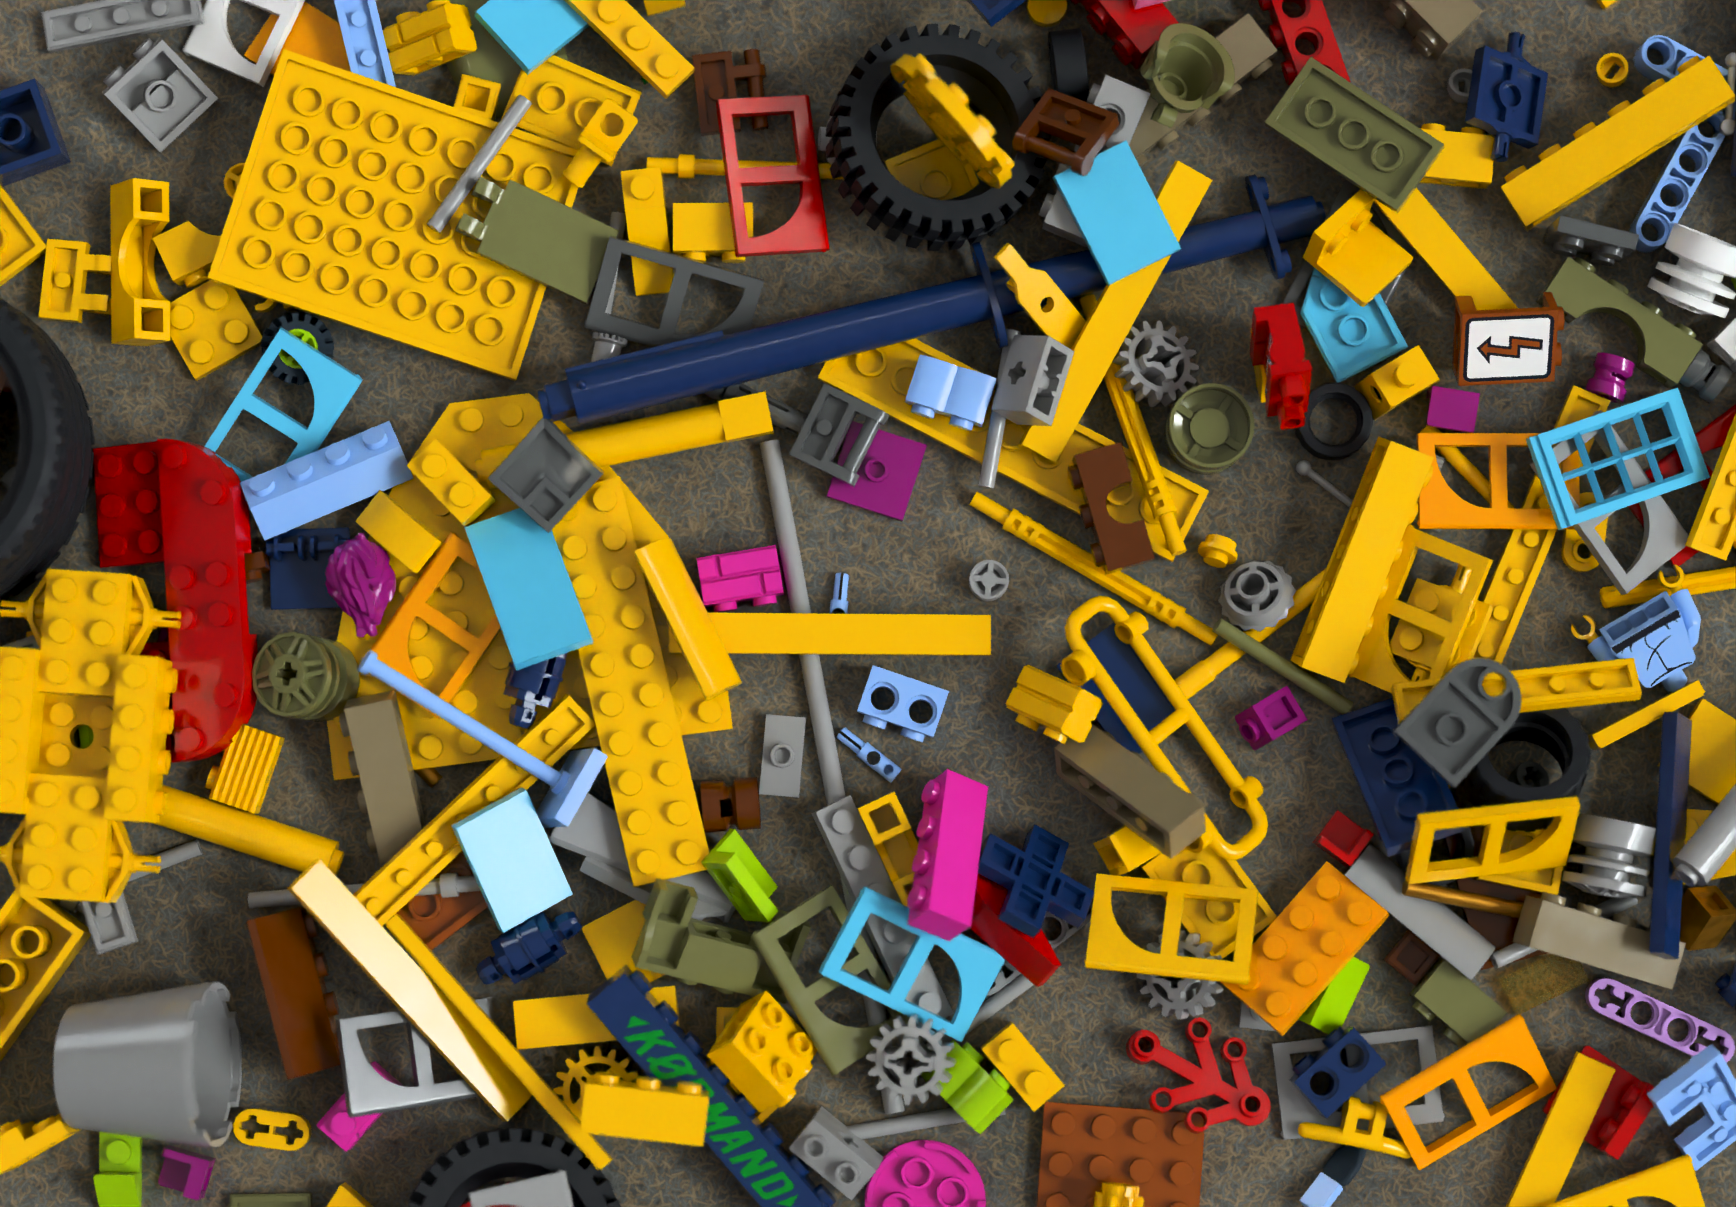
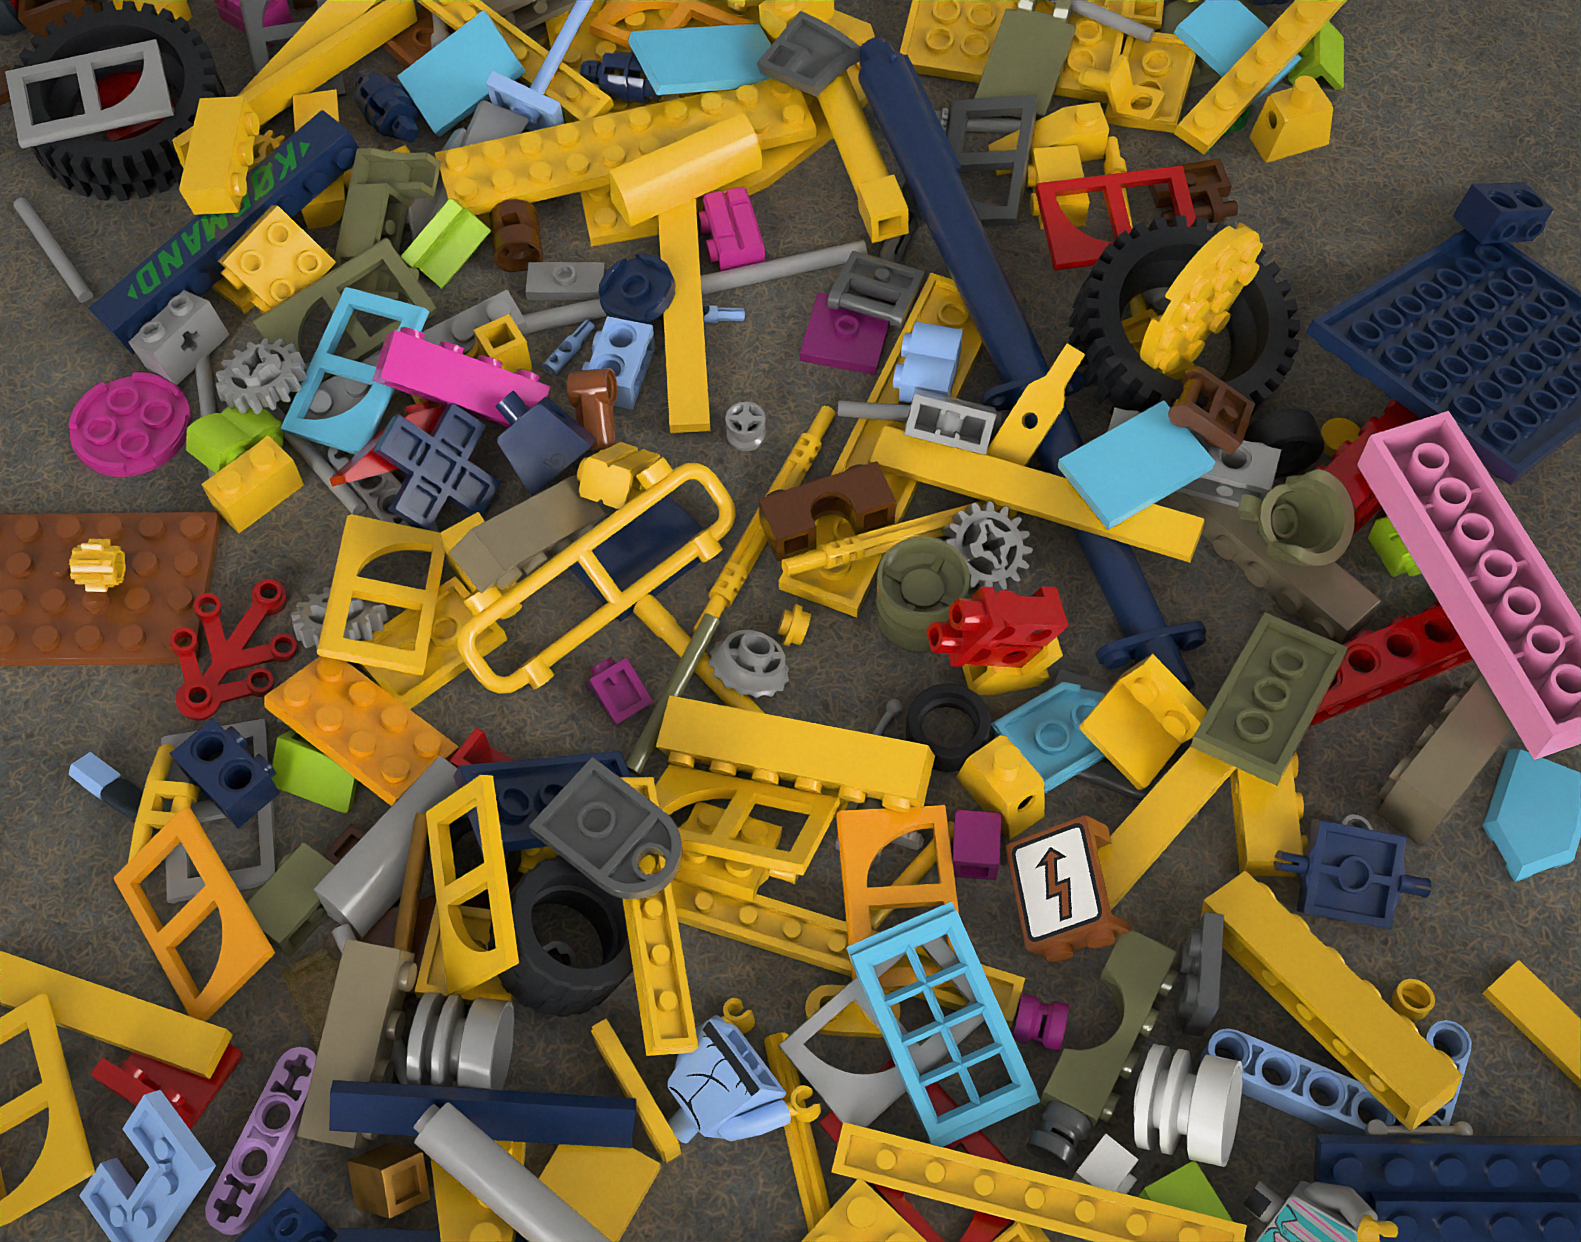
camera: 90 degrees right, 25 degrees down
(823, 679) = (637, 289): none -> dark blue tile
(963, 727) = (593, 396): none -> dark orange piece
(1013, 777) = (540, 440): none -> dark blue torso

